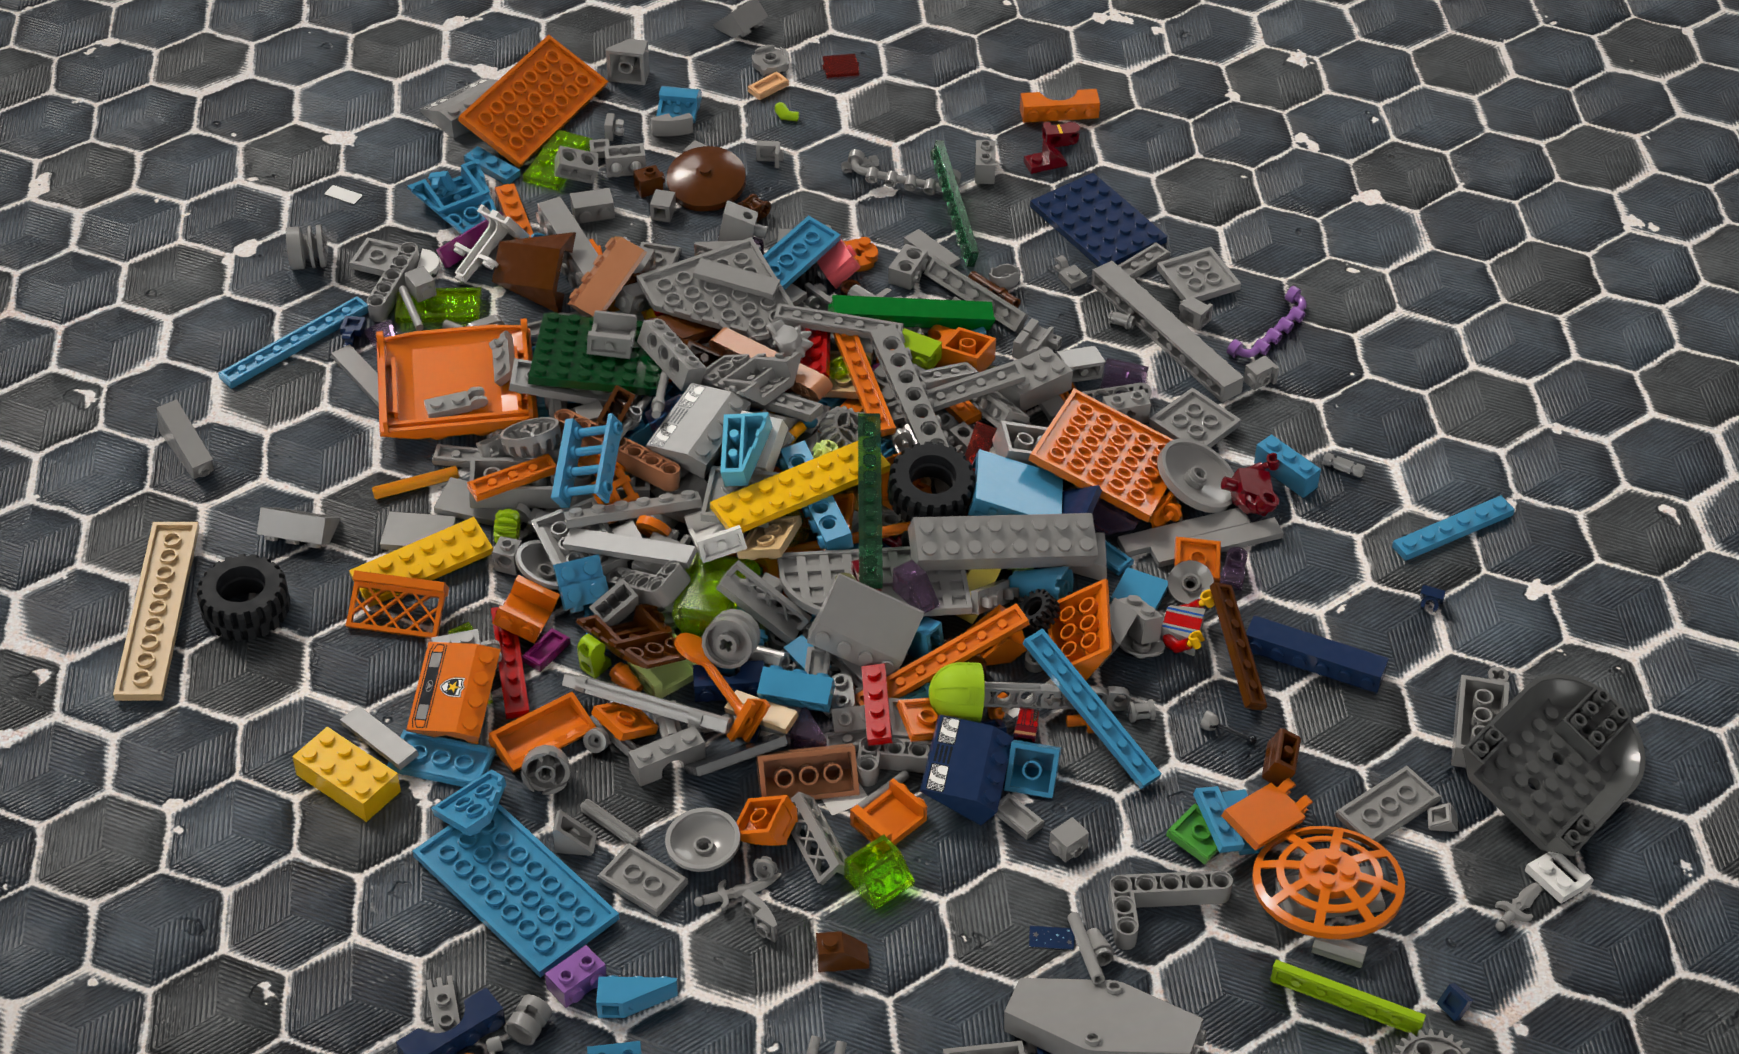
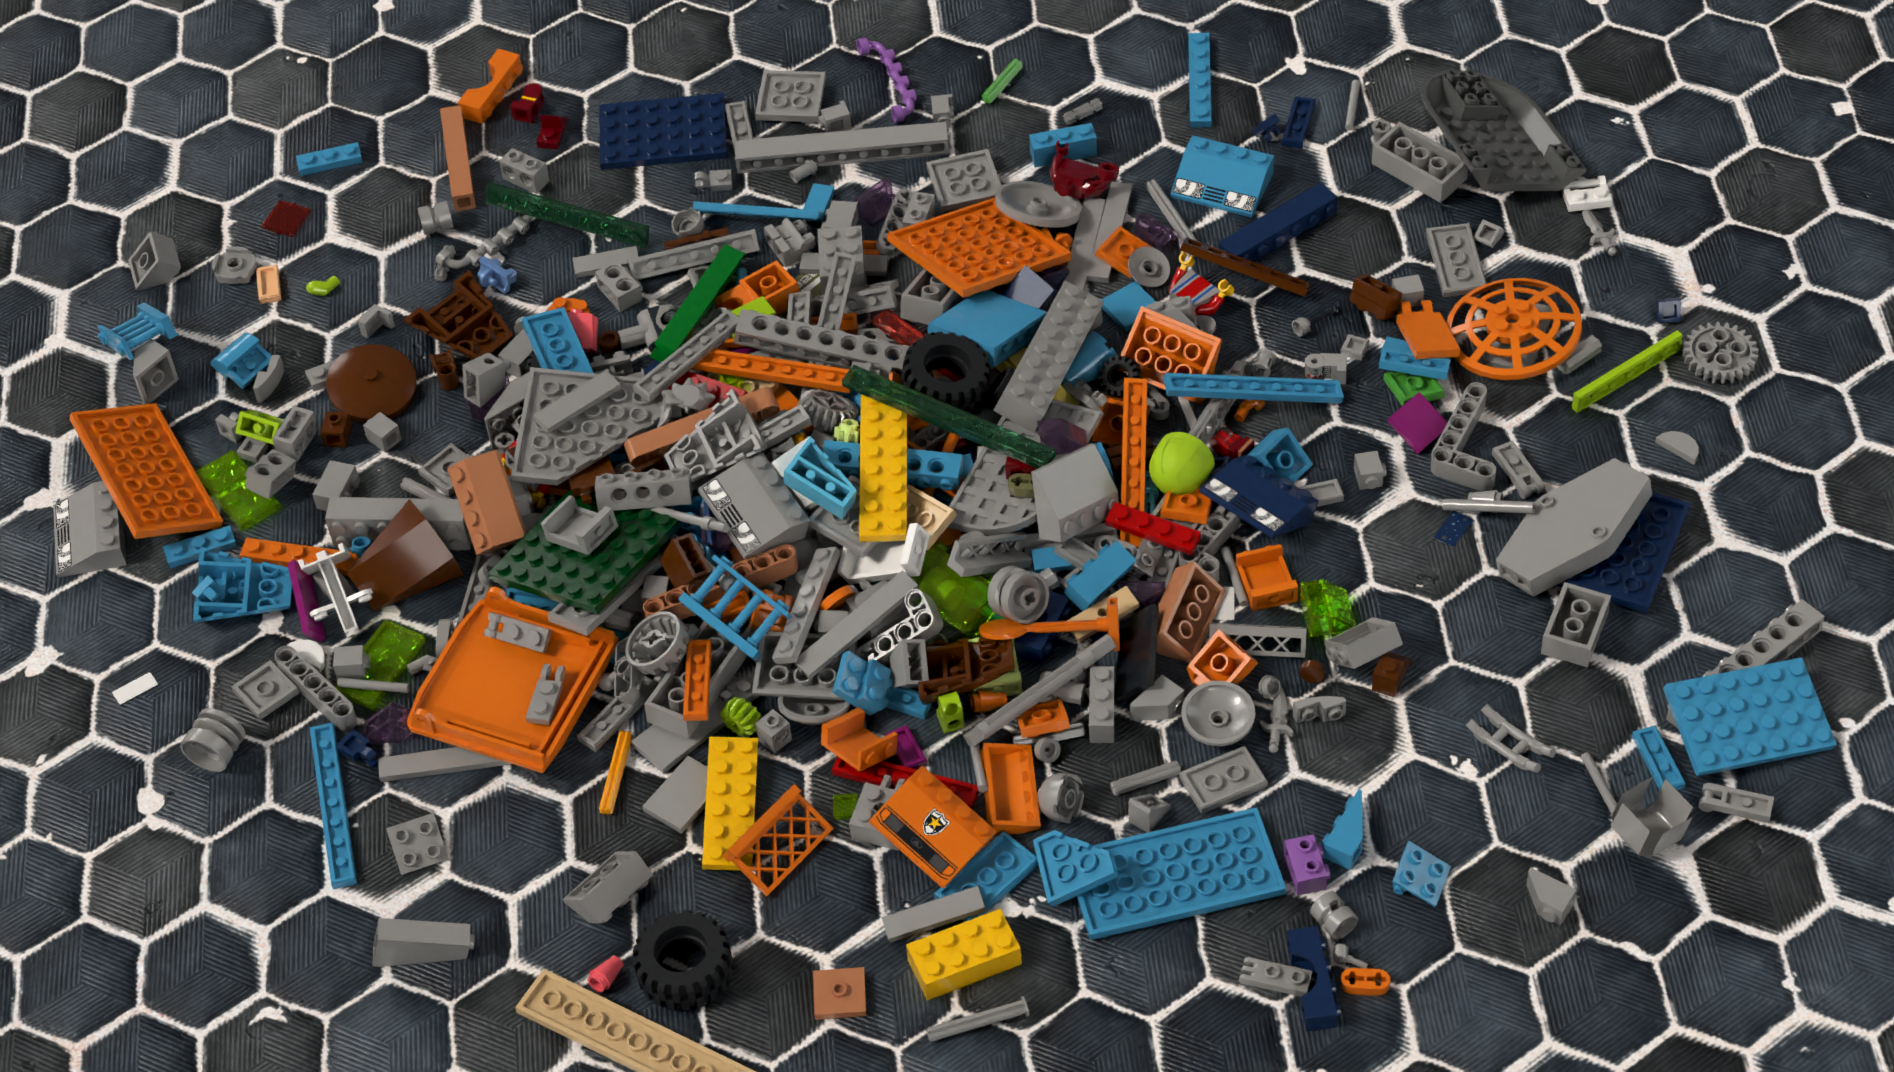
camera: 55 degrees left, 5 degrees up
(209, 558) = (604, 974): none -> coral cone
(271, 713) = (839, 993): none -> nougat plate
(280, 401) = (417, 844): none -> light grey hinge
(289, 815) = (978, 1020): none -> light grey axle
(533, 706) = (979, 768): none -> light grey bar
(618, 134) = (258, 425): none -> lime brick
(661, 37) = (137, 330): none -> dark azure fence
(696, 791) = (1158, 701): none -> light grey slope
(801, 893) = (1312, 671): none -> reddish brown tile
(802, 196) = (464, 320): none -> reddish brown wedge
(848, 913) = (1363, 643): none -> light grey window
(867, 194) = (493, 274): none -> medium blue hips
(897, 136) = (435, 217): none -> light grey wheel
(916, 59) = (329, 159): none -> dark azure plate
(971, 120) = (458, 158): none -> nougat brick
(1050, 308) = (758, 211): none -> dark azure tile
(1104, 342) = (819, 198): none -> dark azure tile
(1152, 851) = (1417, 423): none -> magenta tile
(1156, 957) = (1518, 469): none -> light grey plate
(1174, 759) = (1326, 366): none -> light grey leg
(1217, 772) = (1355, 347): none -> light grey tile
(1269, 578) = (1169, 210): none -> light grey axle
(1312, 781) = (1411, 289): none -> light grey brick
(1333, 398) = (1002, 81): none -> bright green axle
(1344, 590) = (1223, 176): none -> dark azure slope
(1462, 619) = (1298, 122): none -> dark blue tile
(1519, 649) = (1351, 112): none -> light grey bar

